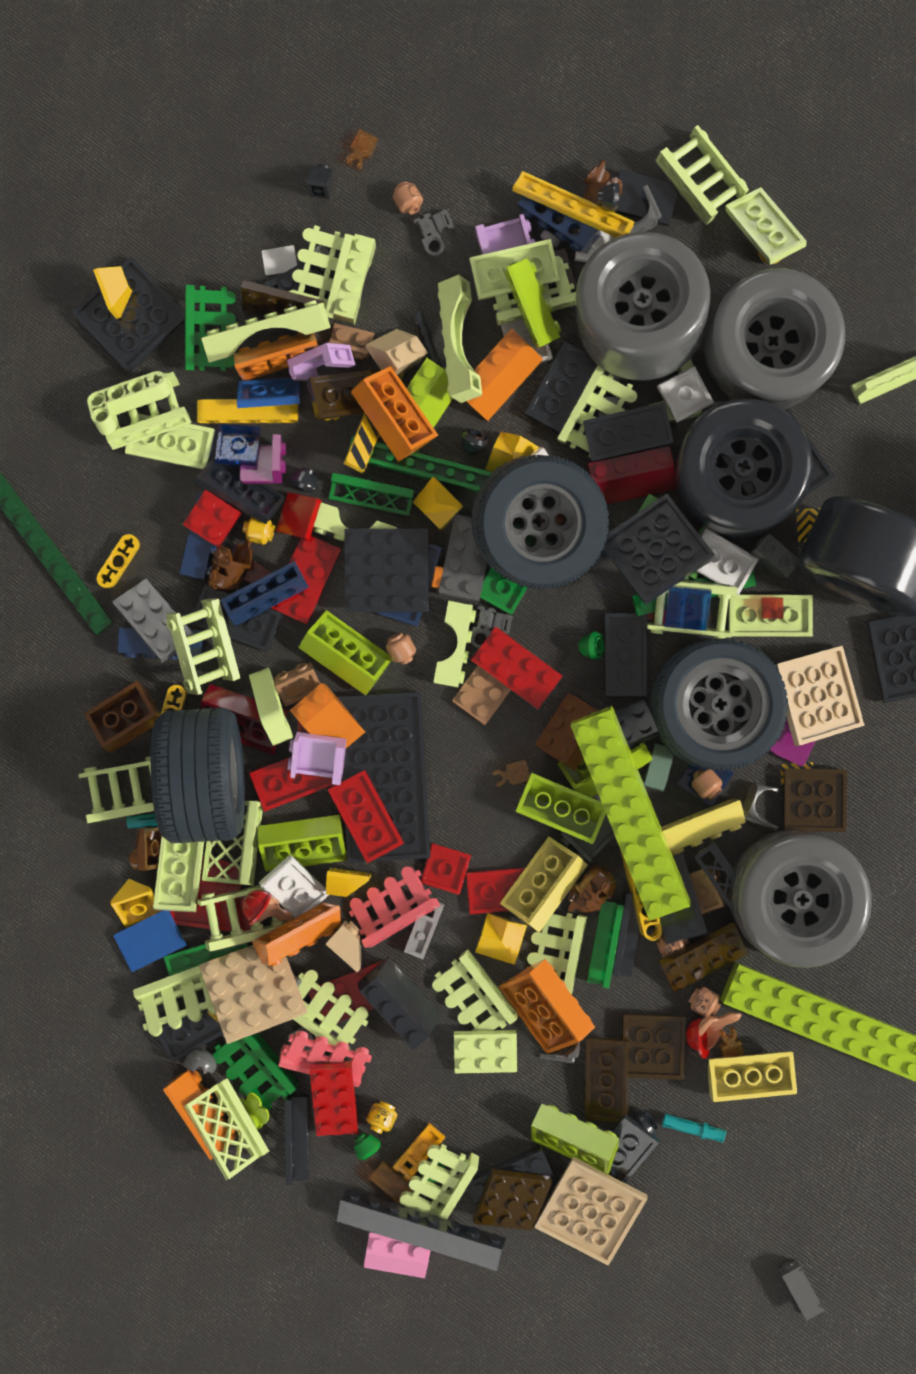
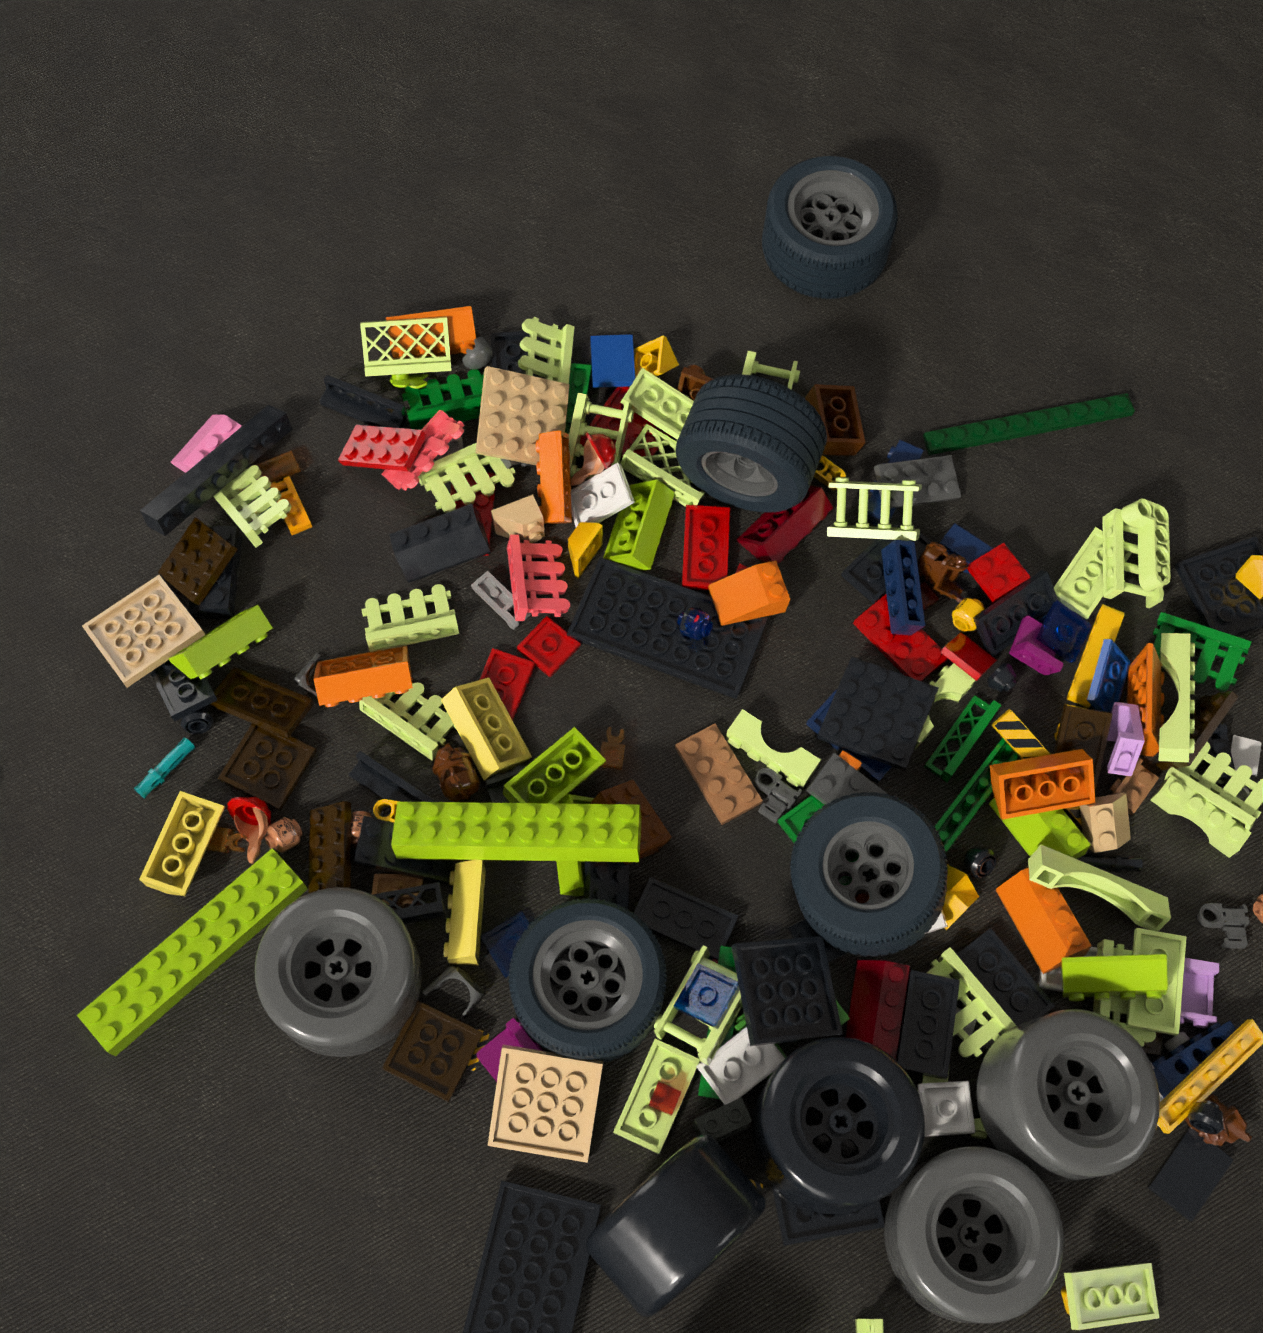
camera: 110 degrees right, 20 degrees down
(109, 562) = (973, 472): yellow beam -> none
(270, 707) = (788, 541): yellowish green beam -> none
(296, 683) = (799, 584): medium nougat bracket -> none
(317, 756) = (718, 567): lavender panel -> none
(345, 652) = (809, 643): lime slope -> none
(366, 816) = (637, 589): red plate -> none
(366, 1146) = (322, 460): green cone -> none
(376, 754) = (695, 623): none -> clear blue head
(381, 1117) = (341, 485): yellow head -> none
(400, 648) = (791, 696): nougat head -> none
(437, 503) = (925, 791): yellow slope -> none
(485, 1051) = (351, 604): yellowish green plate -> none
(501, 938) = (453, 666): yellow slope -> none
(516, 668) = (720, 798): red plate -> none
(592, 645) = (709, 887): green cone -> none
(605, 943) = (395, 762): green fence -> none
(652, 216) = (1163, 1164): dark grey helmet -> none
(658, 768) = (543, 894): sand green slope -> none
(692, 192) = (1201, 1223): yellowish green fence -> none
(706, 783) = (505, 937): nougat head -> none

